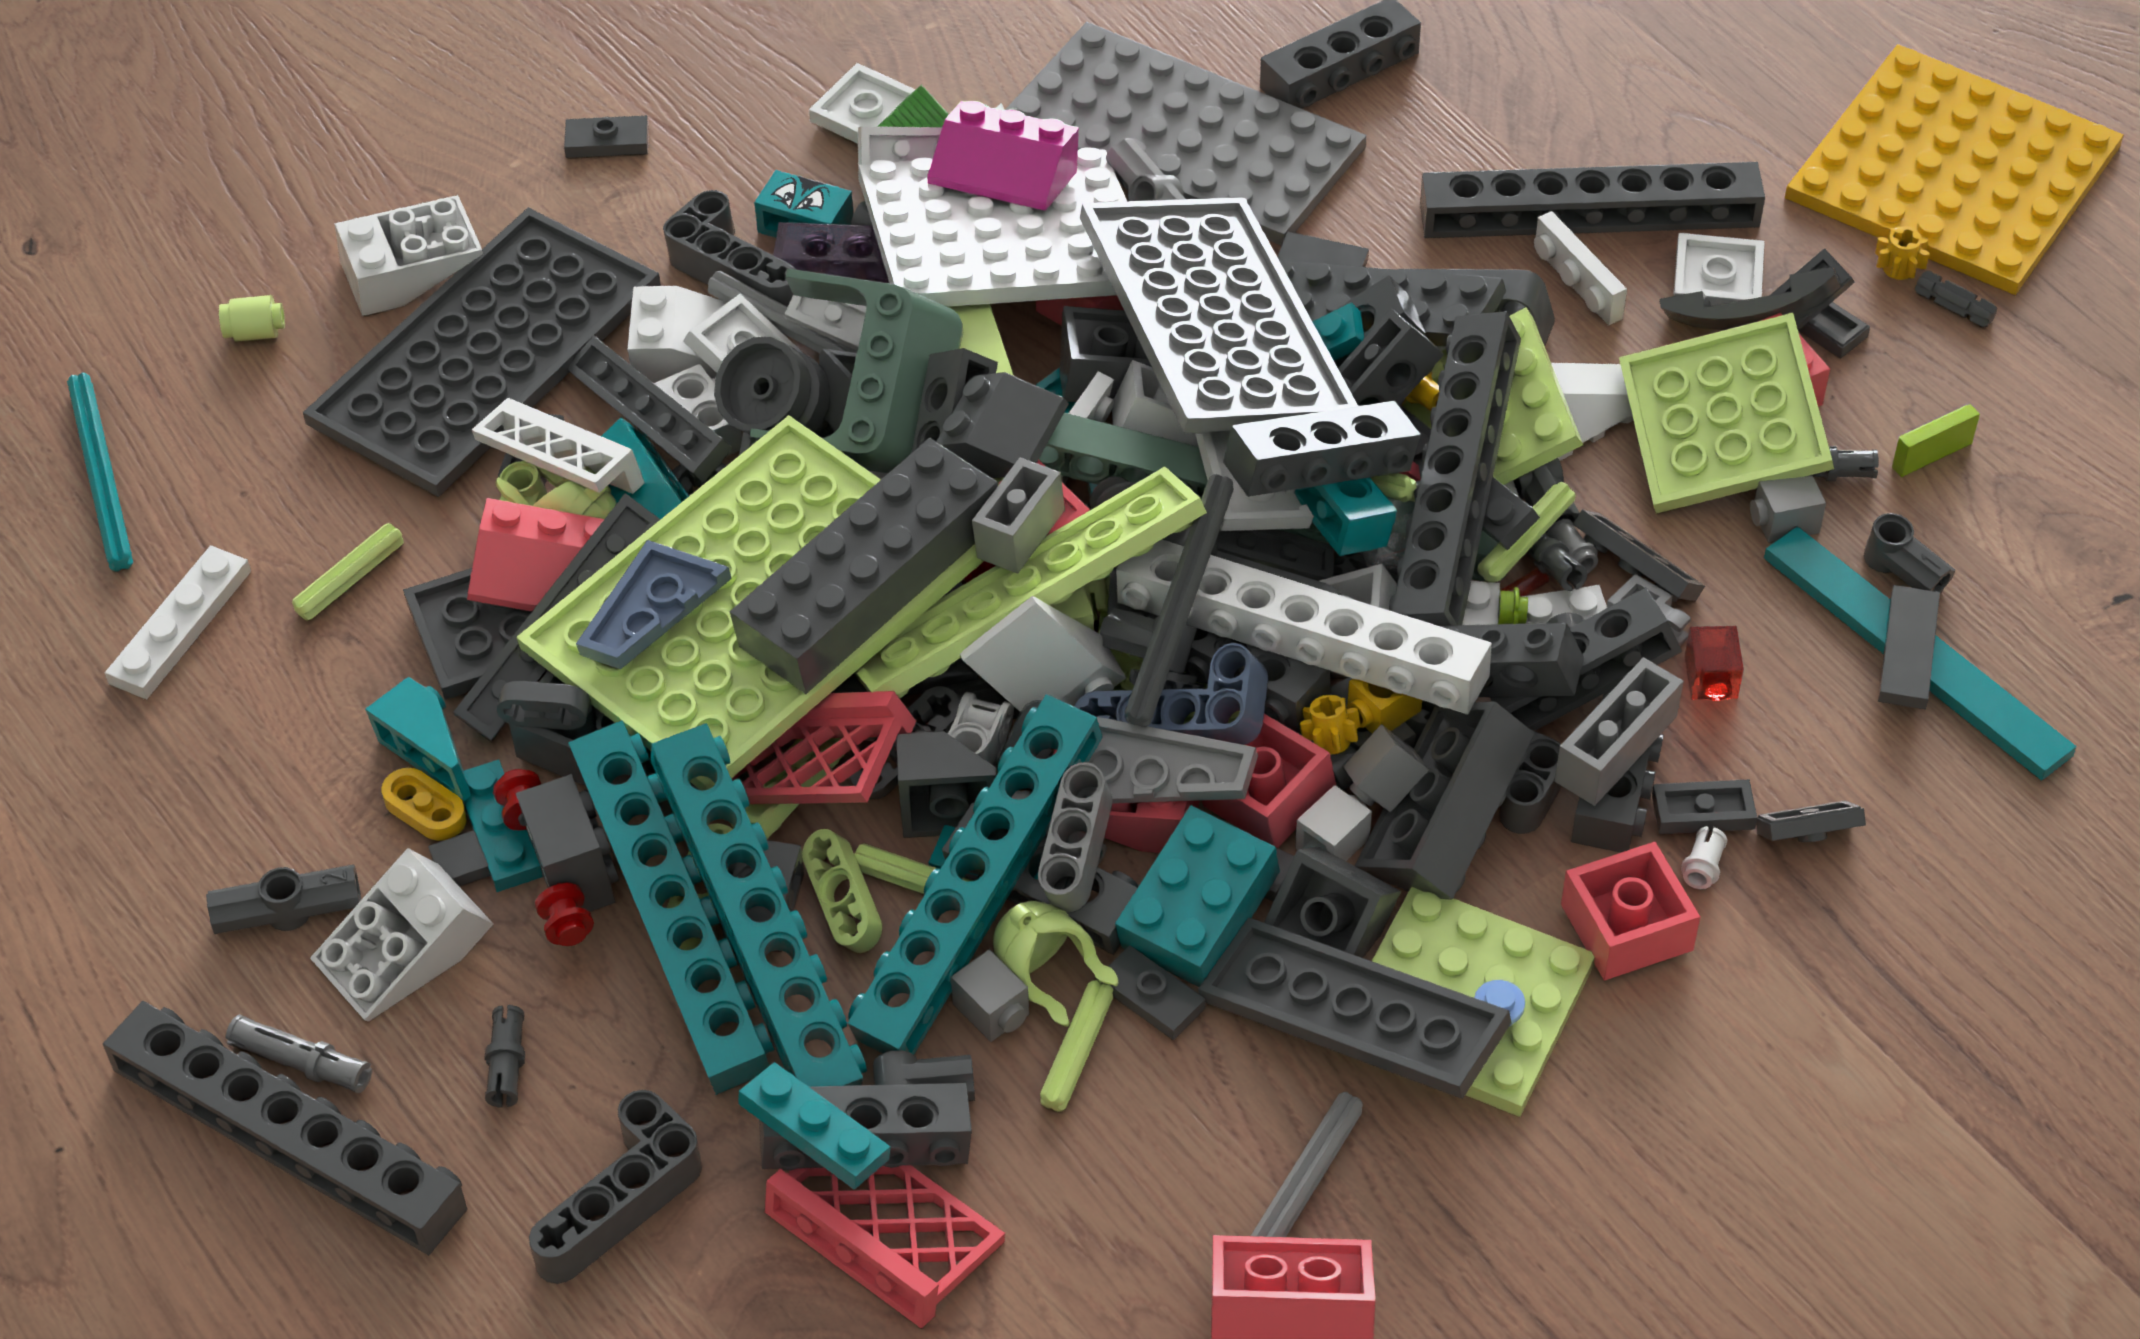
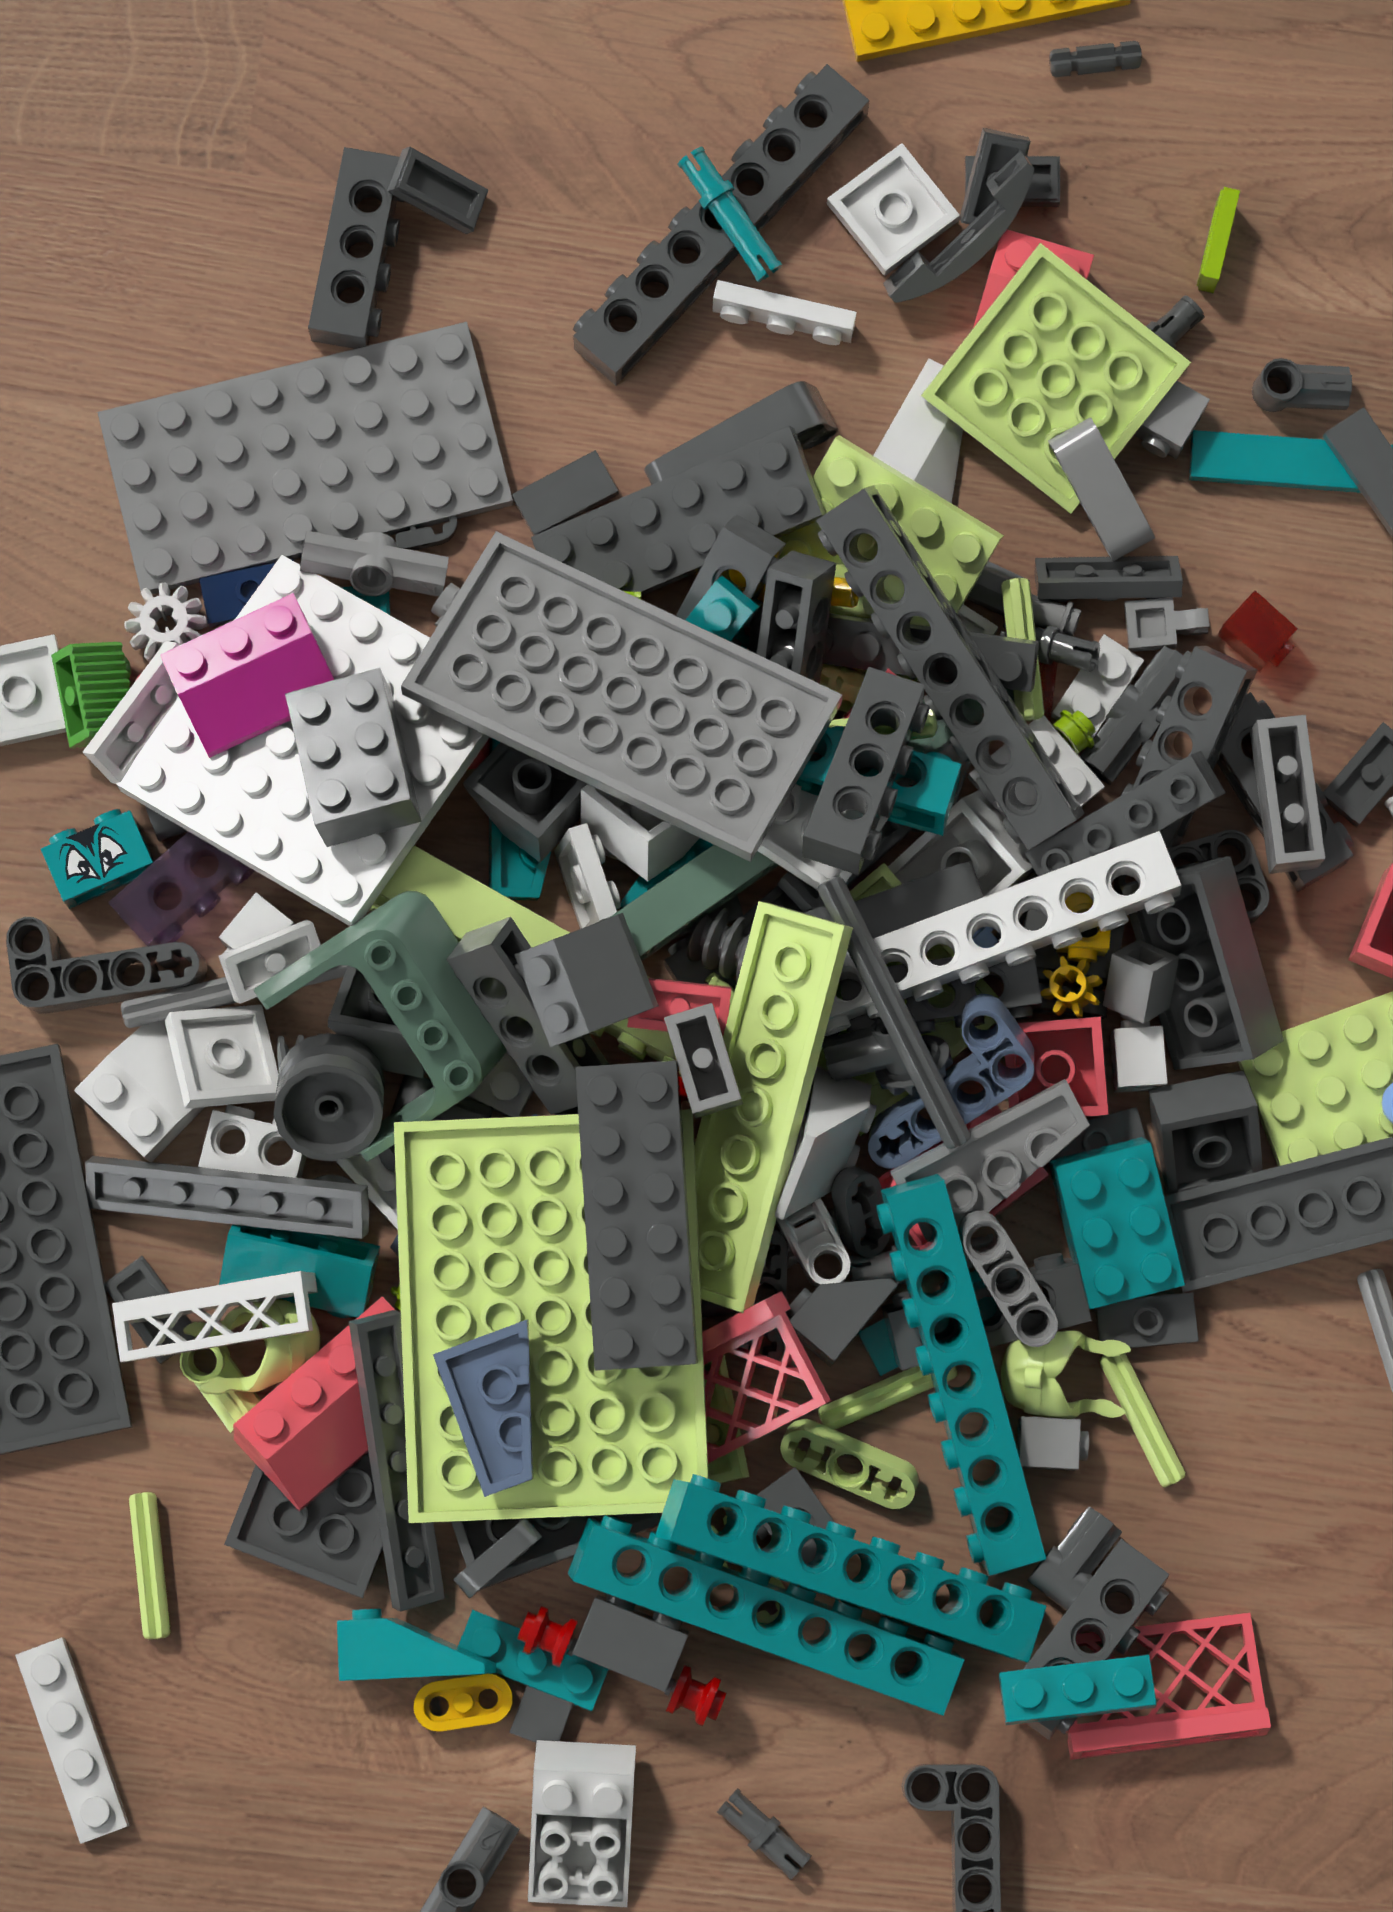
camera: 50 degrees left, 30 degrees up
(1006, 218) = (352, 757): none -> brick
(1426, 59) = (437, 190): none -> dark grey tile
(1600, 165) = (729, 213): none -> teal pin
(1687, 492) = (1101, 489): none -> light grey beam
(1902, 253) = (1010, 61): yellow gear -> none

